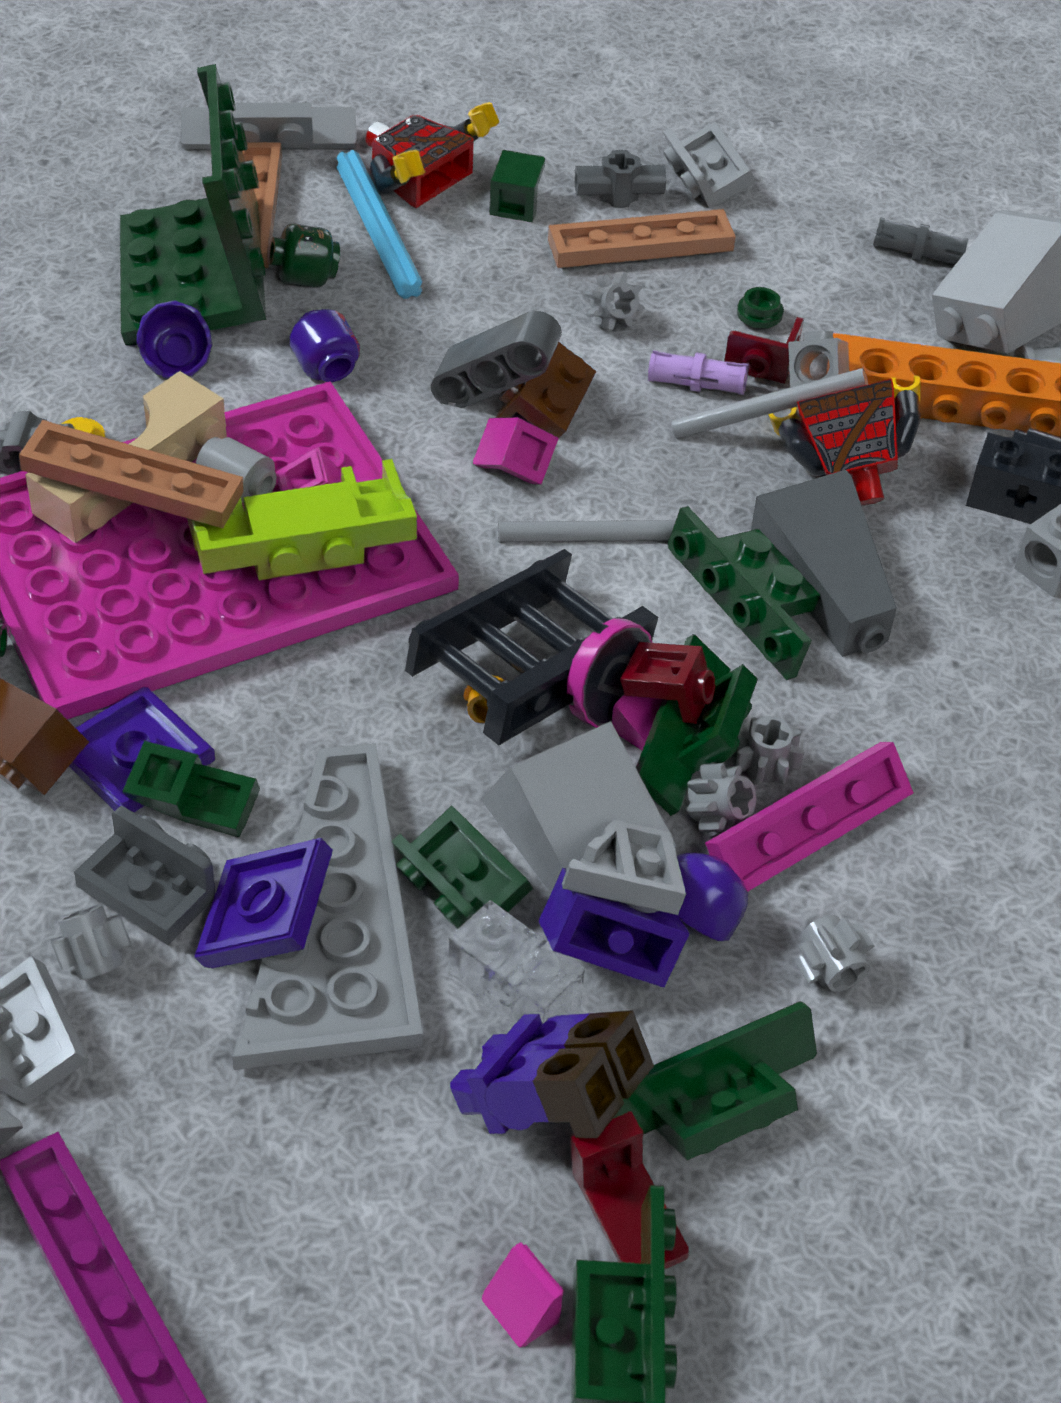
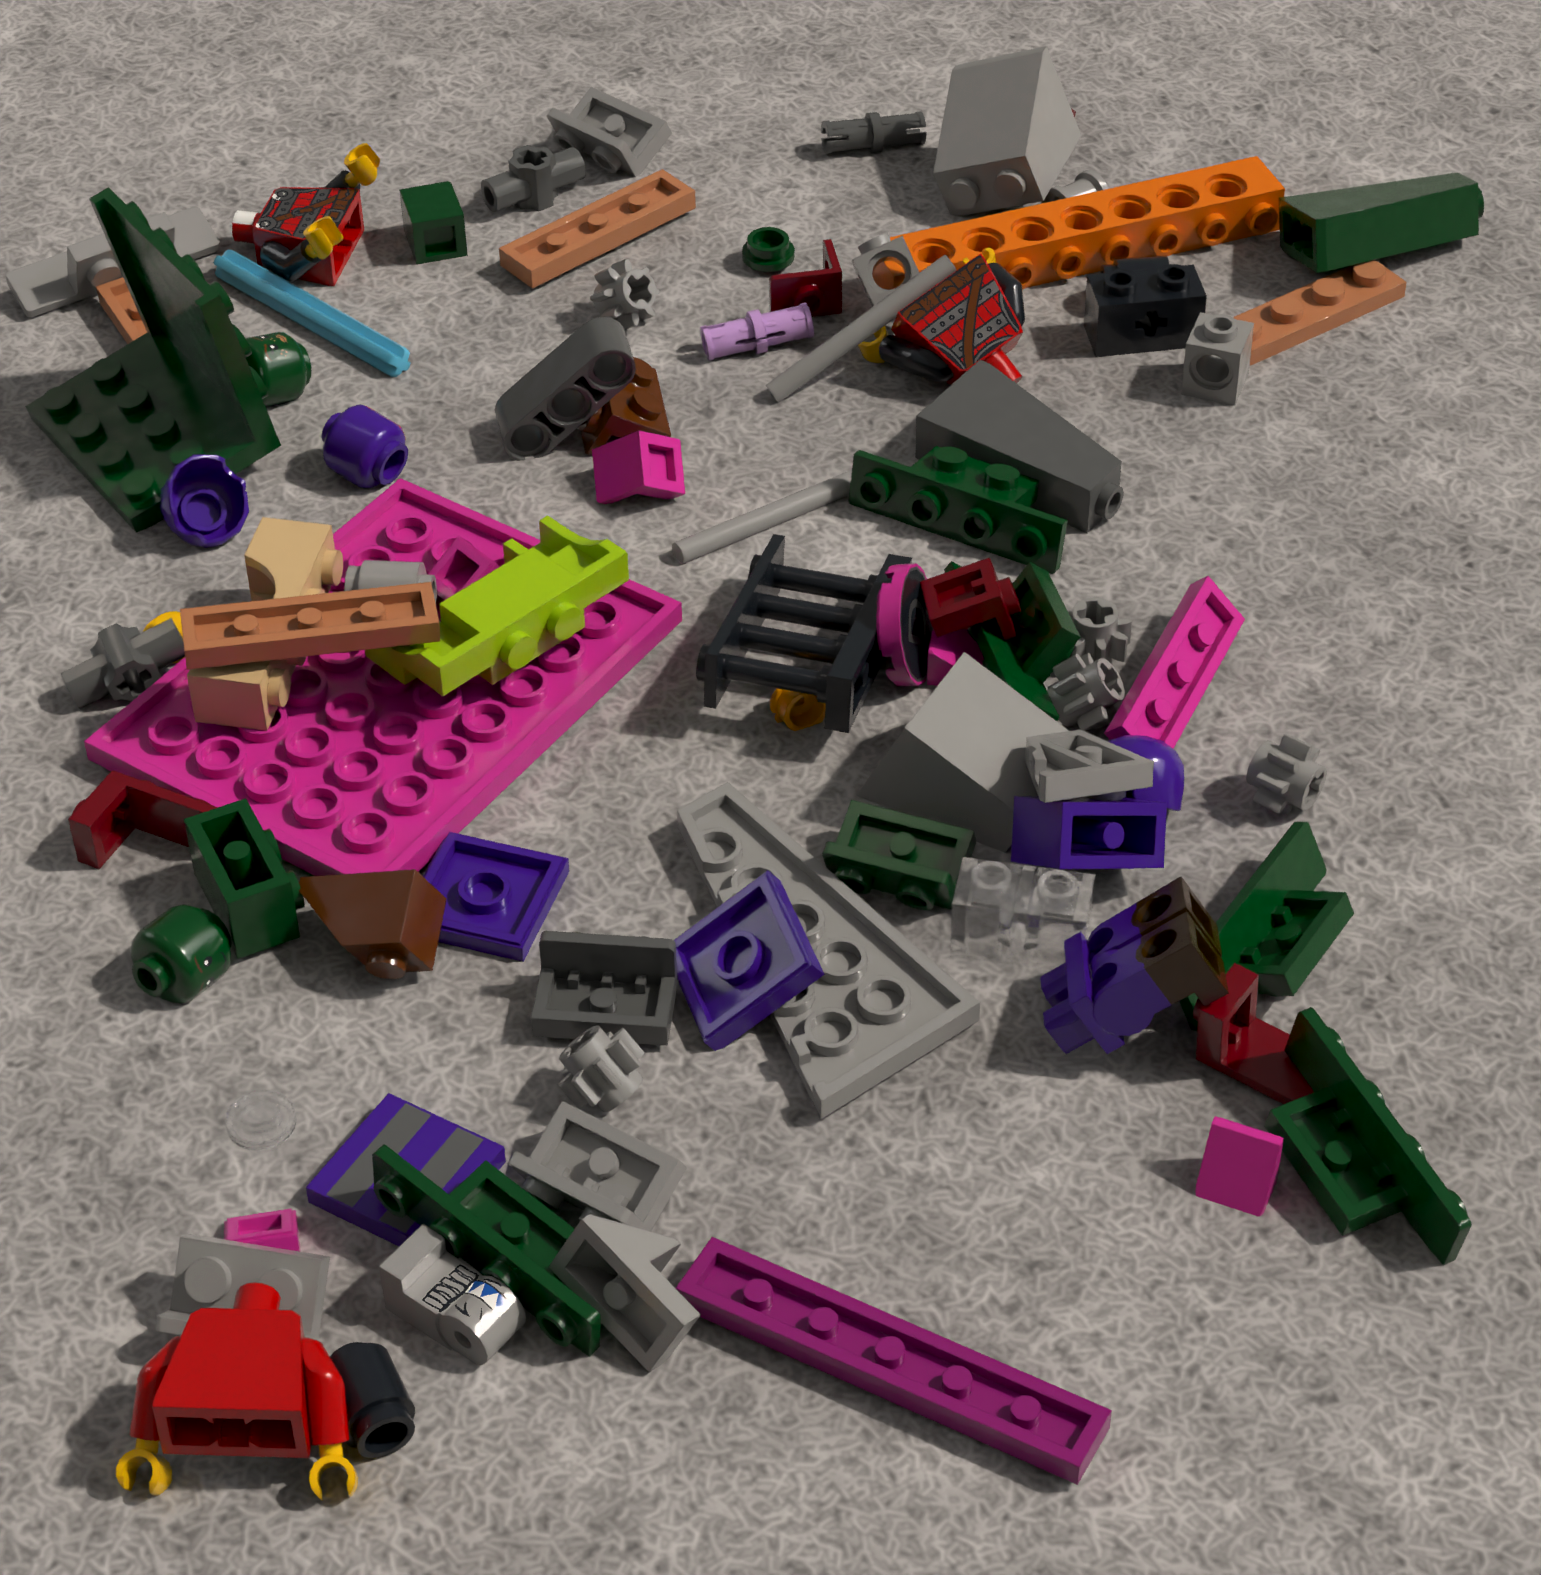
camera: 25 degrees left, 5 degrees down
(191, 792) = (583, 901): dark green slope -> none

